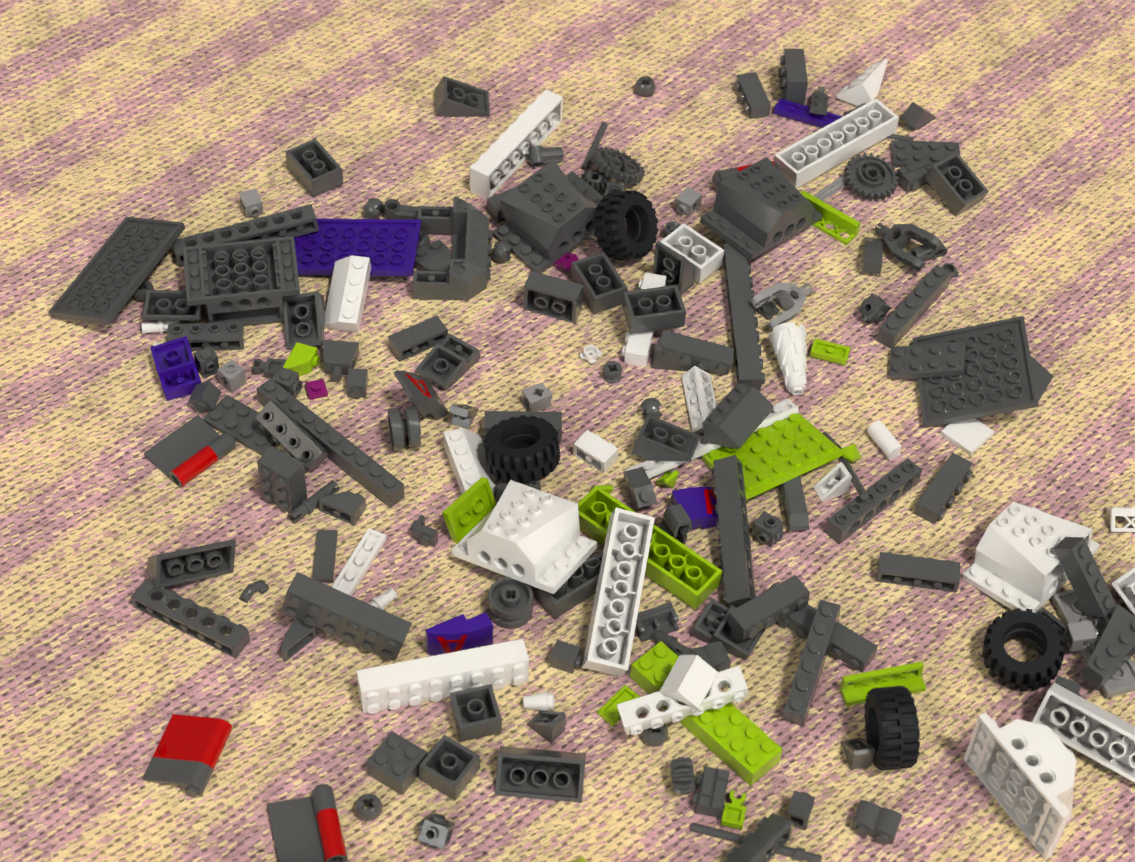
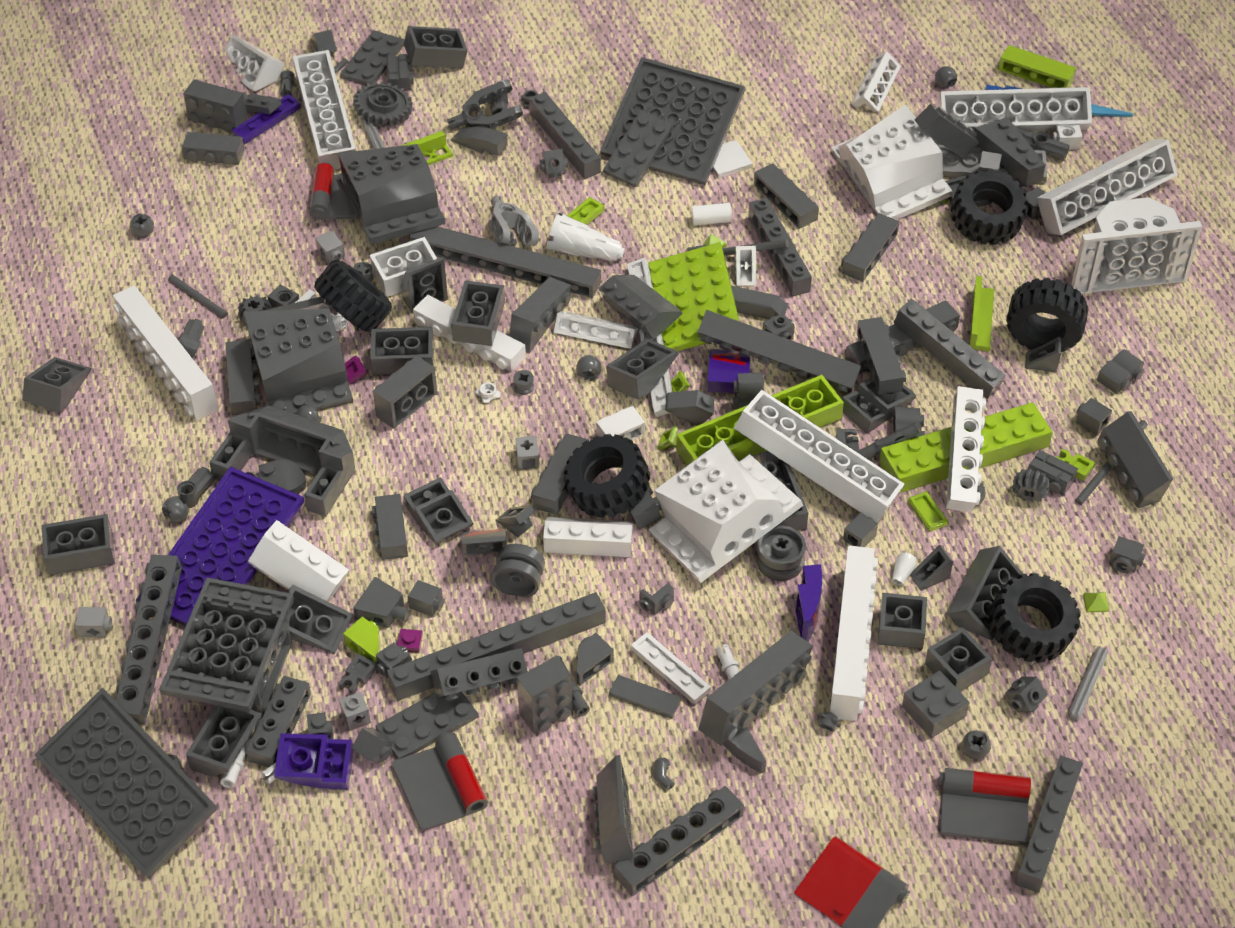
camera: 65 degrees left, 0 degrees up
(349, 689) = (828, 721): none -> dark grey plate
(469, 509) = (653, 549): lime plate -> none
(519, 784) = (1021, 637): none -> black tyre
(618, 165) = (249, 281): dark grey gear -> none
(689, 680) = (956, 430): white slope -> none

